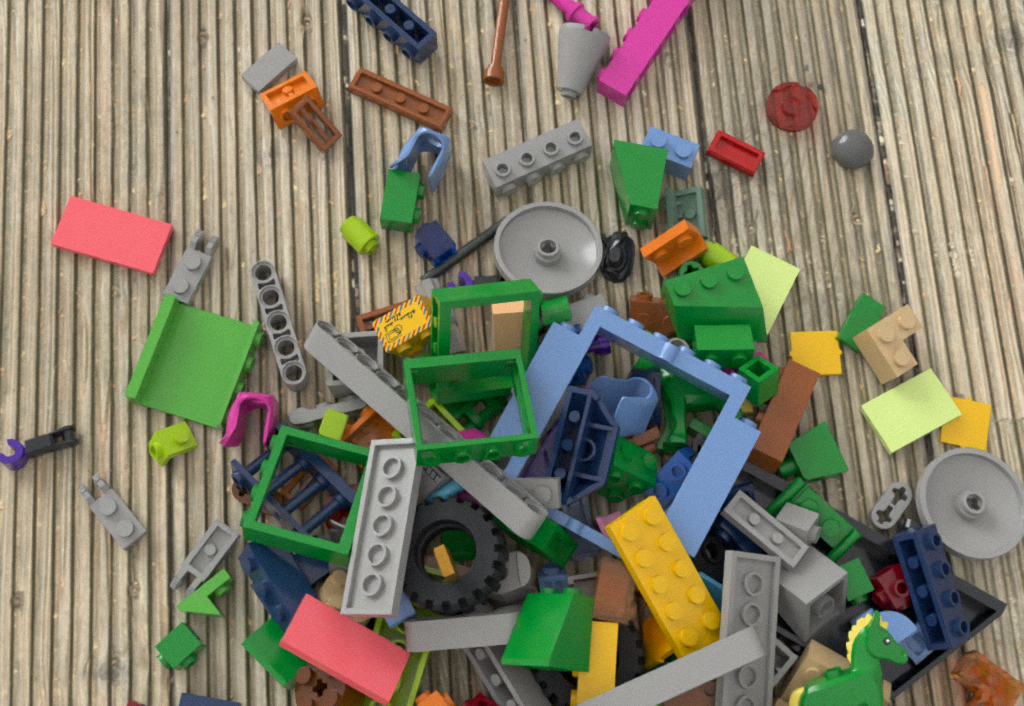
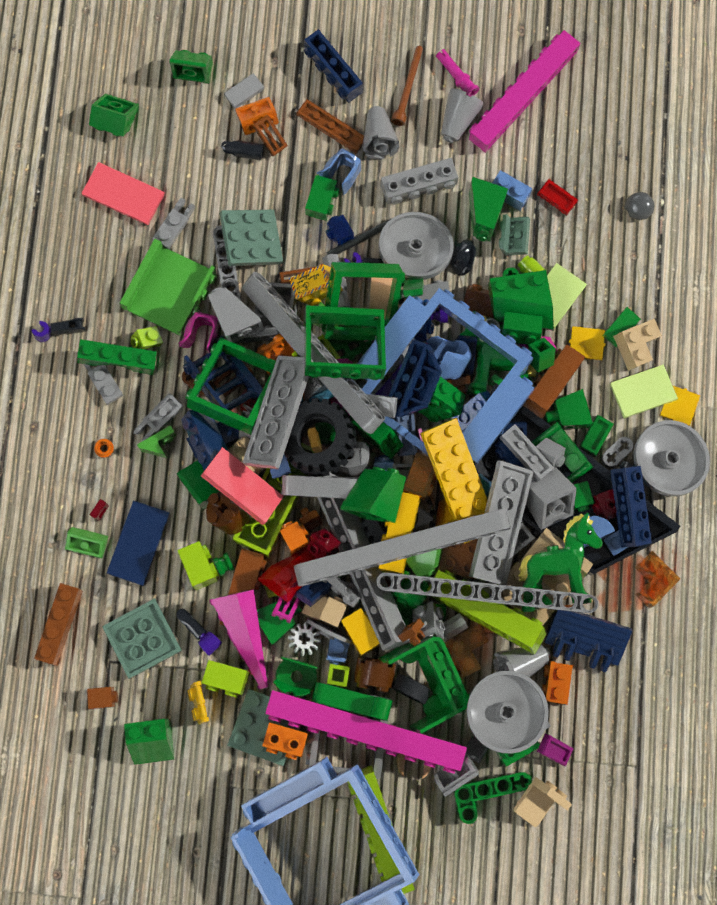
camera: 10 degrees right, 5 degrees up
(84, 126) = (113, 114): none -> green slope
(109, 475) = (100, 353): none -> green arch
(119, 614) = (104, 442): none -> orange plate
(180, 648) = (135, 472): green brick -> none
(188, 44) = (191, 66): none -> green slope
(280, 148) = (244, 149): none -> black piece
(297, 390) = (234, 316): none -> light grey slope
(307, 271) = (251, 237): none -> sand green plate
(333, 424) = (254, 342): lime slope -> none
(359, 235) = (290, 217): lime brick -> none
(455, 680) = (310, 519): none -> dark orange tile
(470, 102) = (379, 135): none -> light grey cone
(675, 247) = (502, 257): orange bracket -> none
(791, 107) = (603, 169): clear red tile -> none
(854, 486) = (596, 435): none -> green tile

